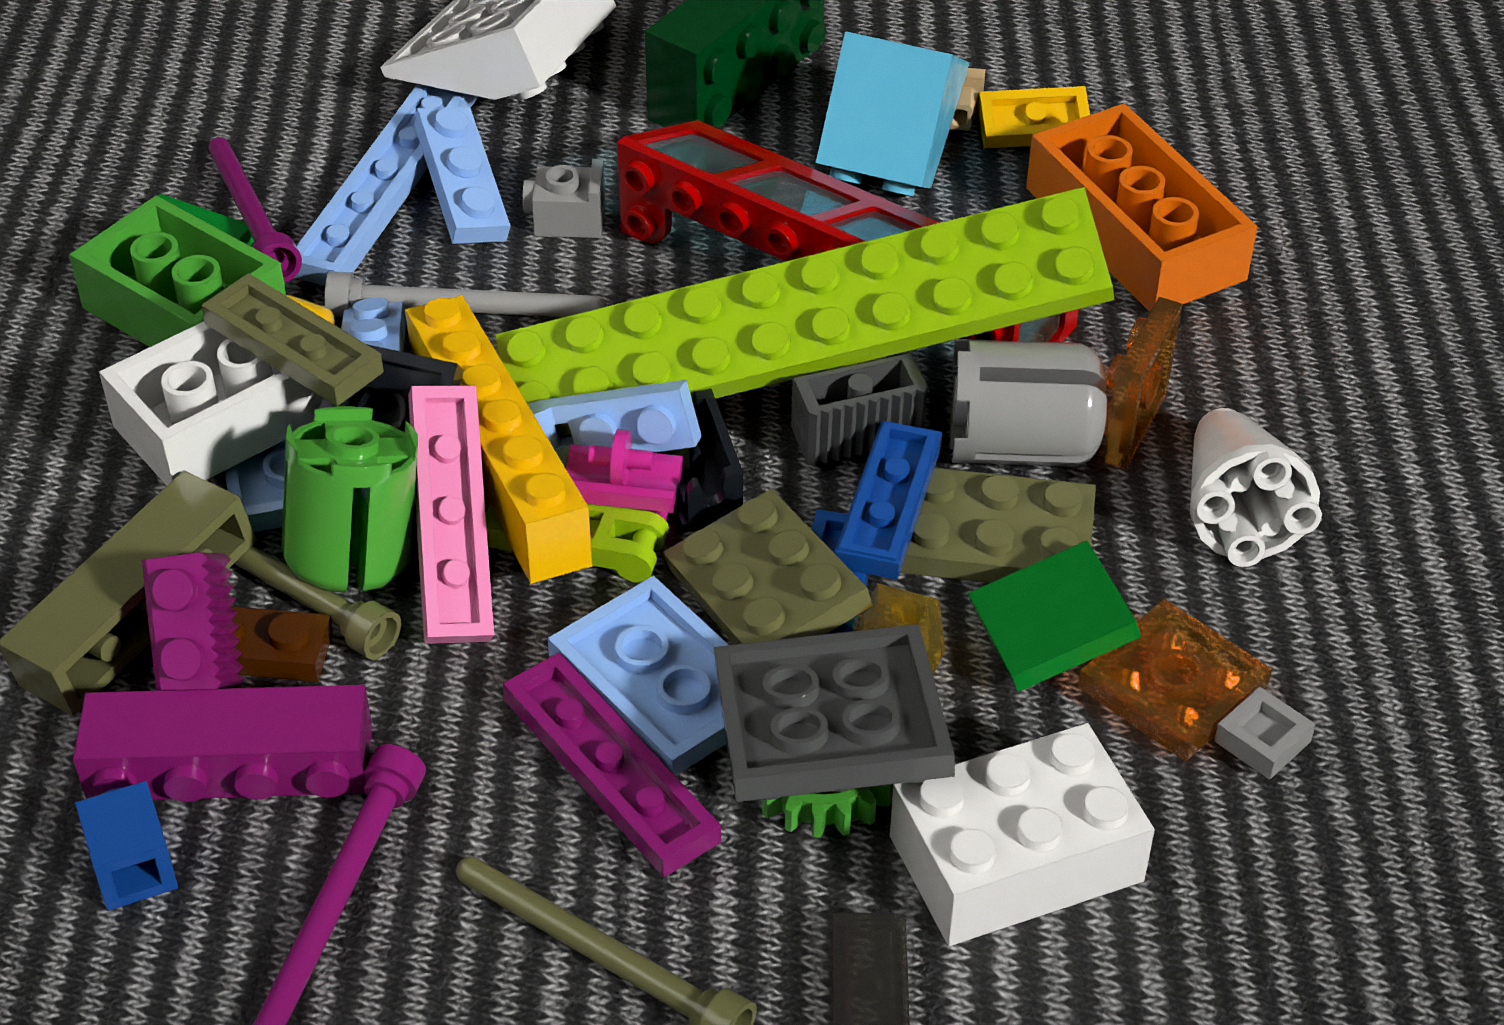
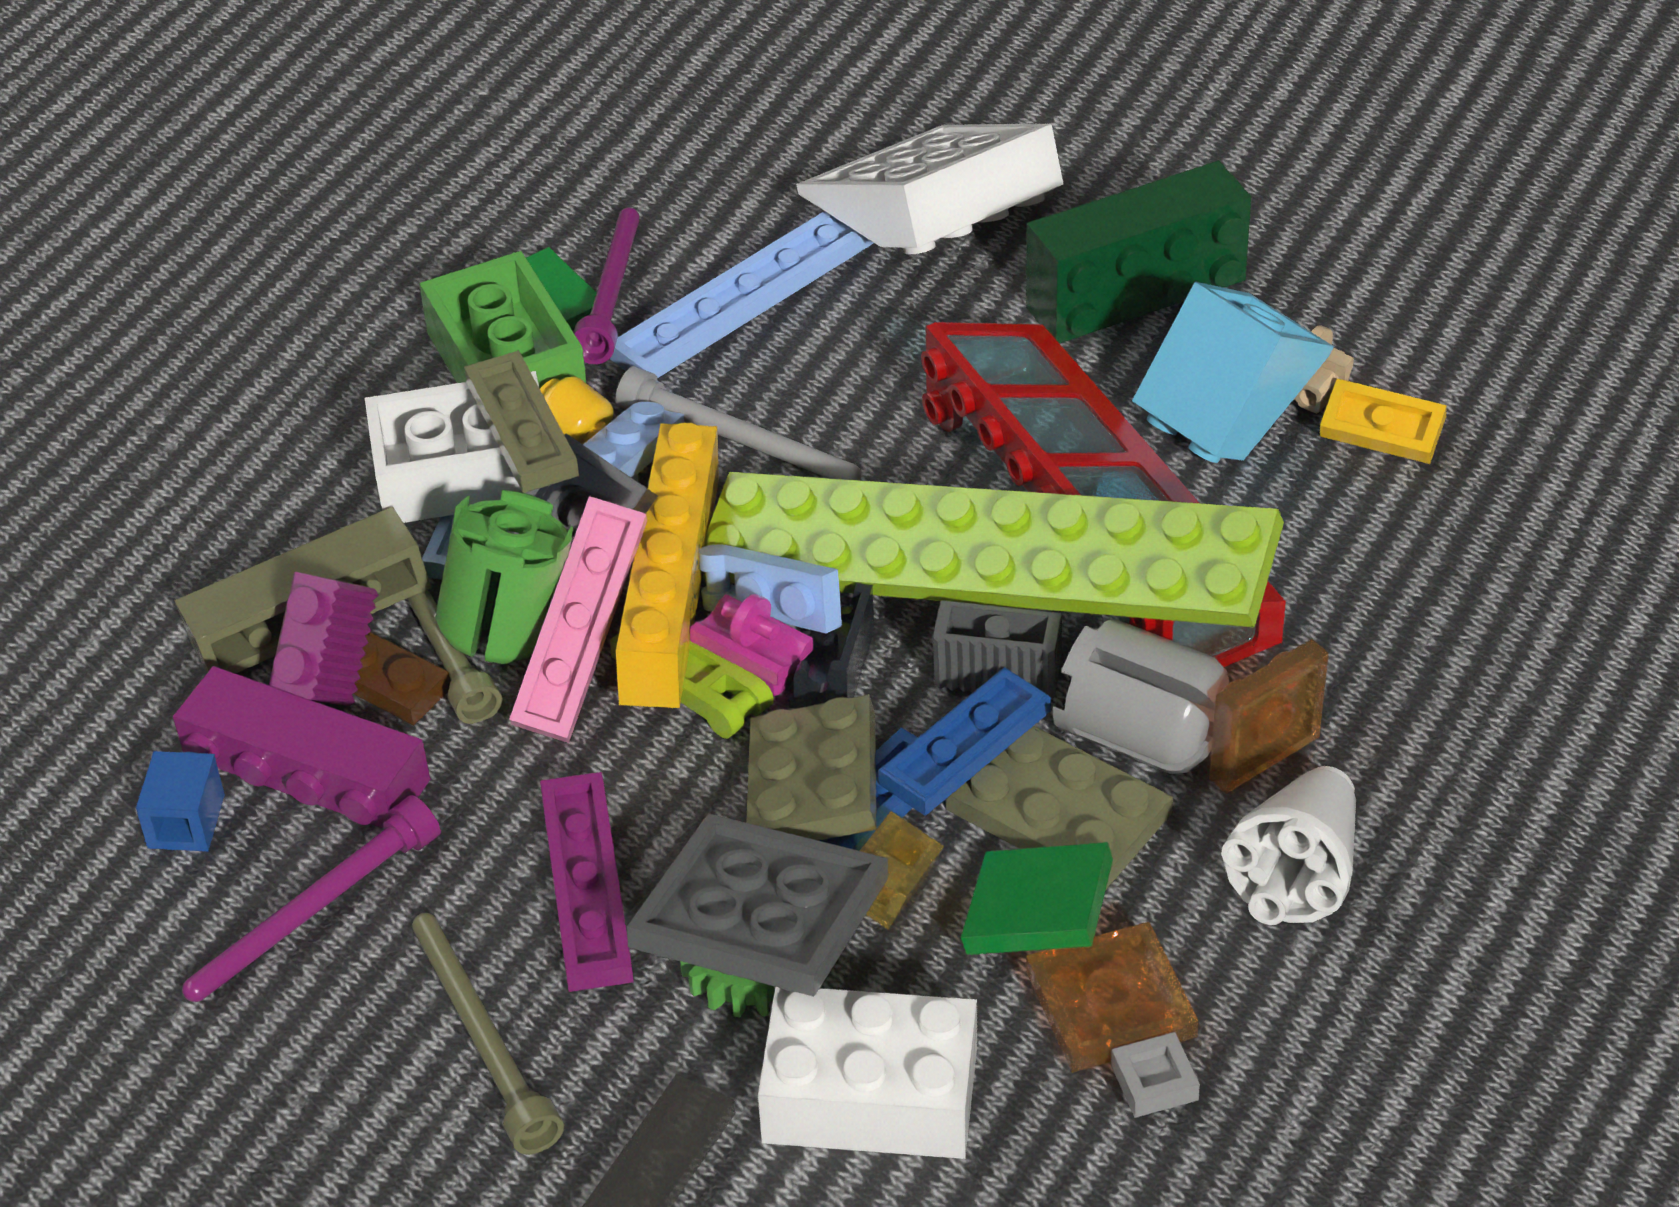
camera: 30 degrees right, 0 degrees up
(461, 175) = (808, 310): light blue plate -> none
(567, 200) = (885, 365): light grey brick -> none
(653, 669) = (661, 800): light blue plate -> none
(1153, 211) = (1406, 547): orange brick -> none

